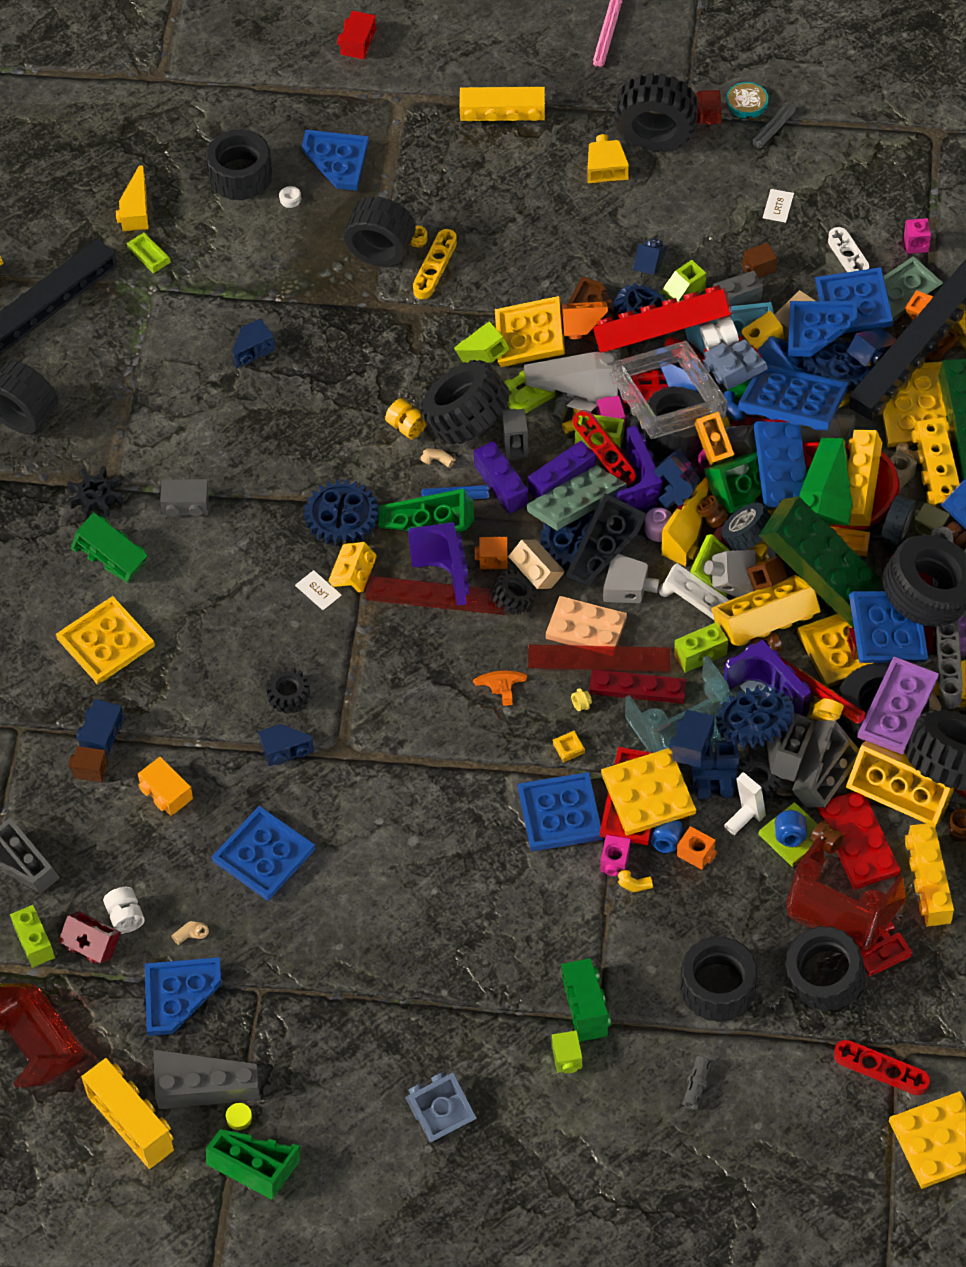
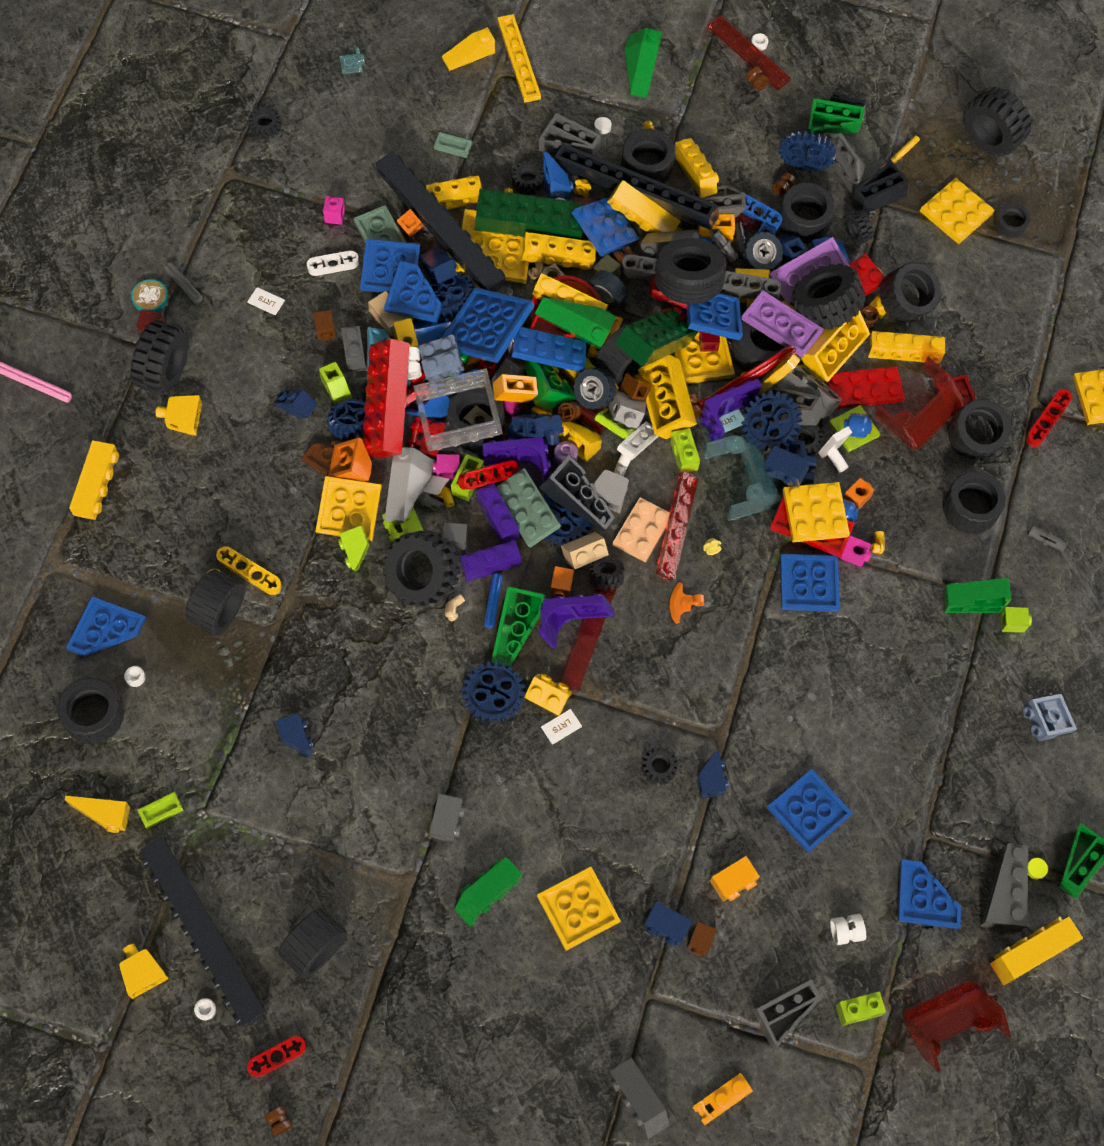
camera: 85 degrees left, 10 degrees up
(89, 937) = (870, 960): brick -> none
(95, 492) = (413, 897): black gear -> none
(190, 930) = (869, 879): tan arm -> none
(405, 418) = (407, 626): yellow wheel -> none
(568, 746) = (750, 565): yellow tile -> none
(637, 686) = (705, 505): dark red plate -> none
(830, 839) = (870, 403): reddish brown wheel -> none

